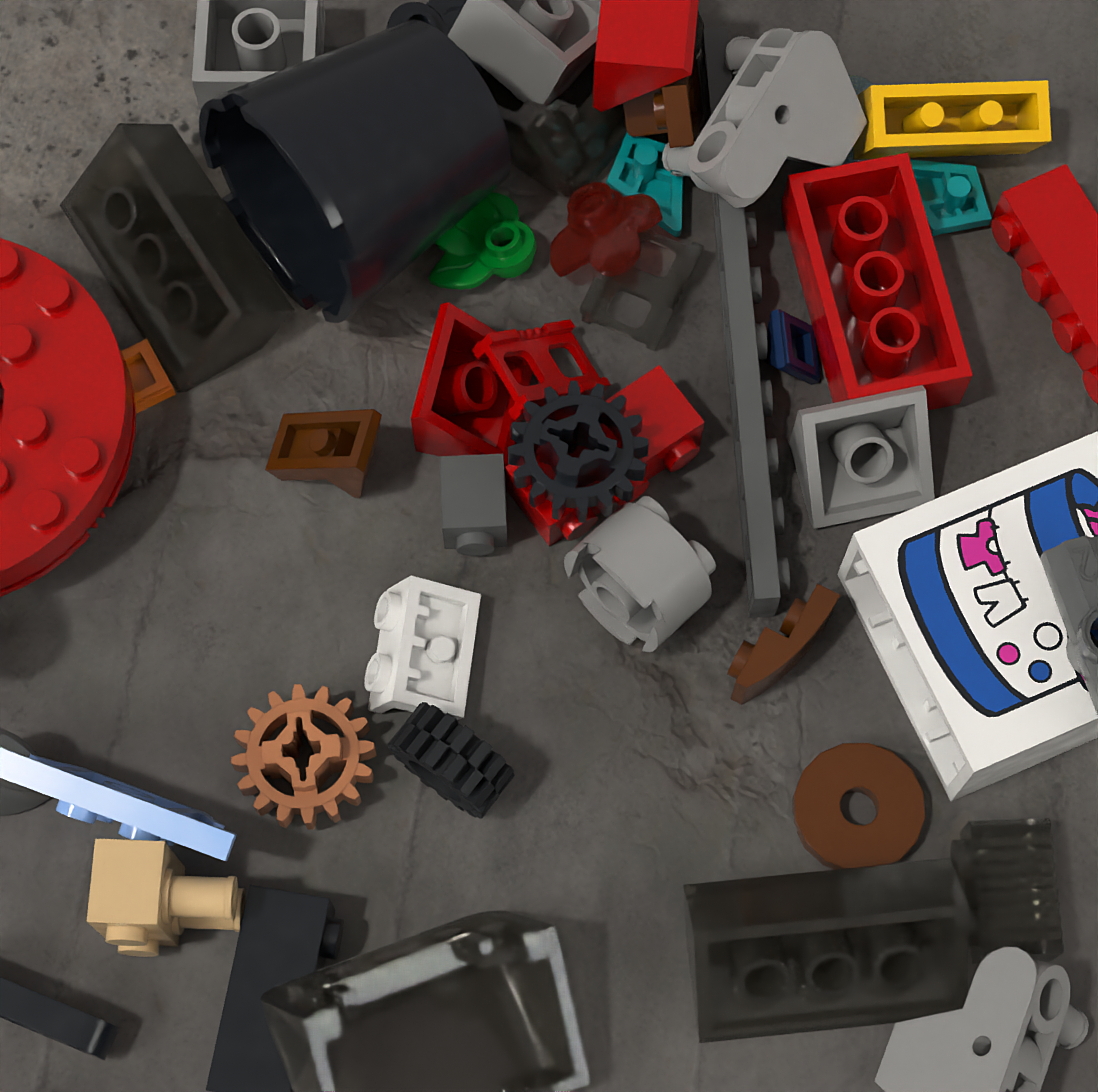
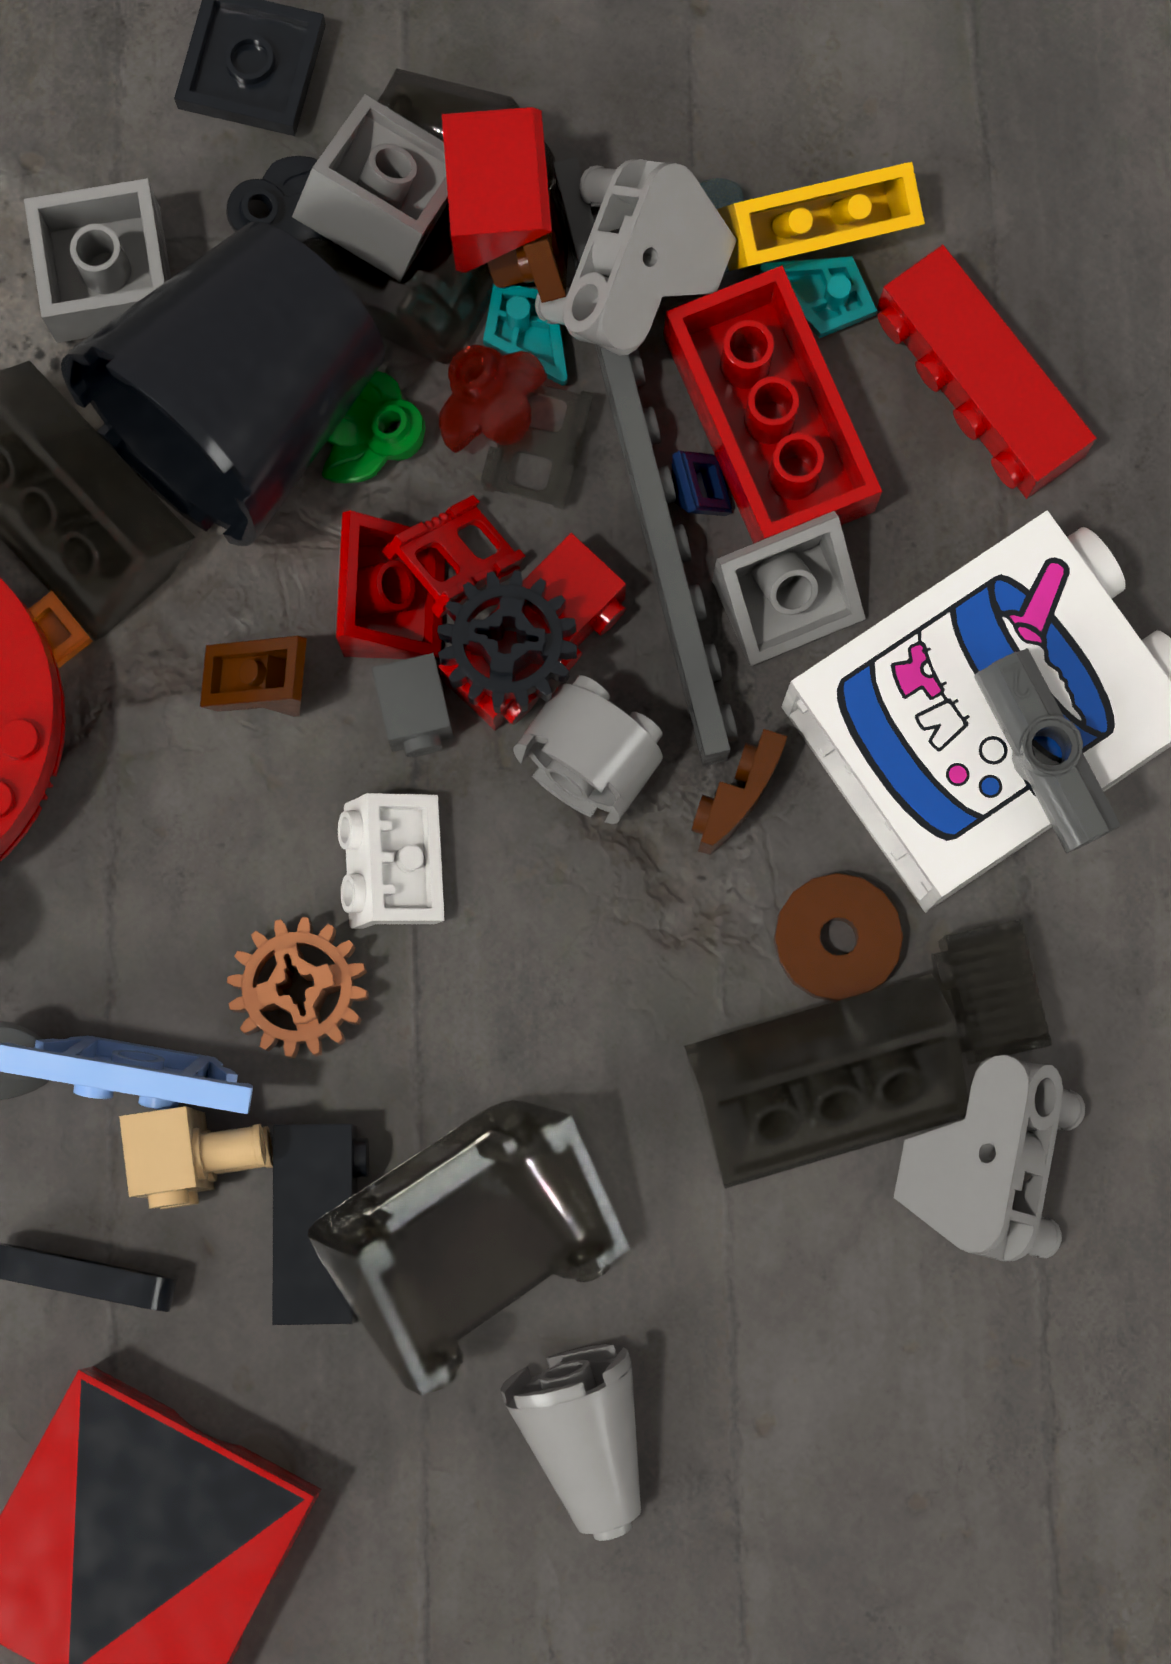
camera: 10 degrees left, 10 degrees up
(451, 760) = (441, 968): black tyre -> none

